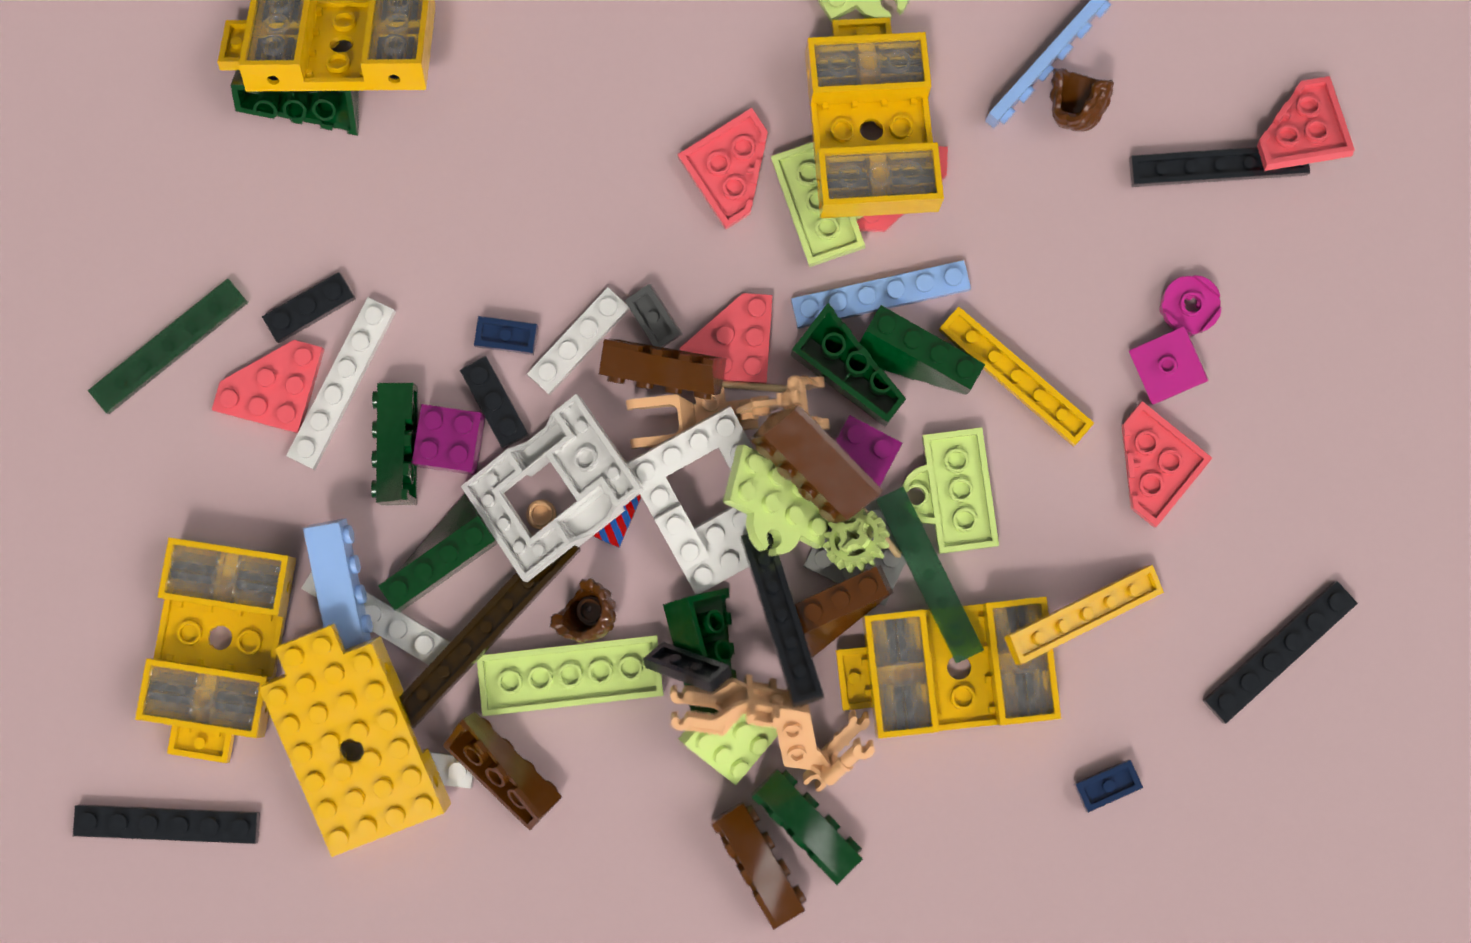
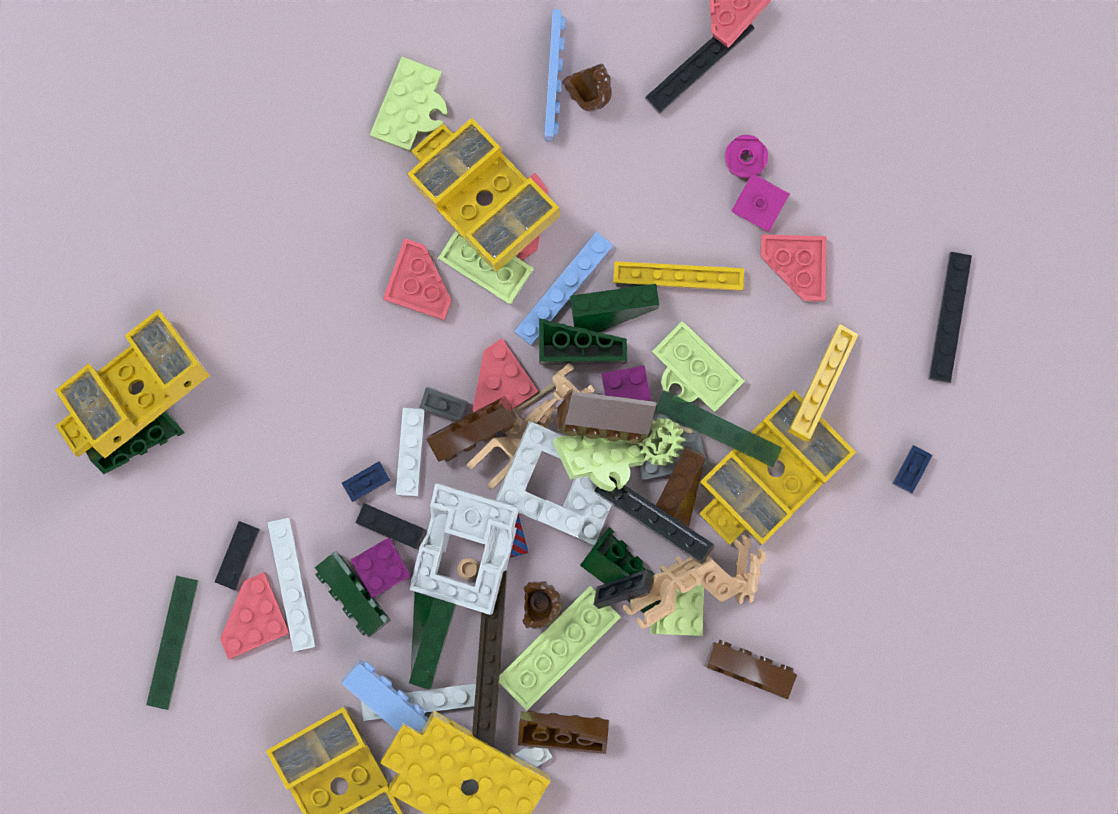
camera: 35 degrees left, 0 degrees up
(807, 826) = (761, 626): dark green wedge -> none

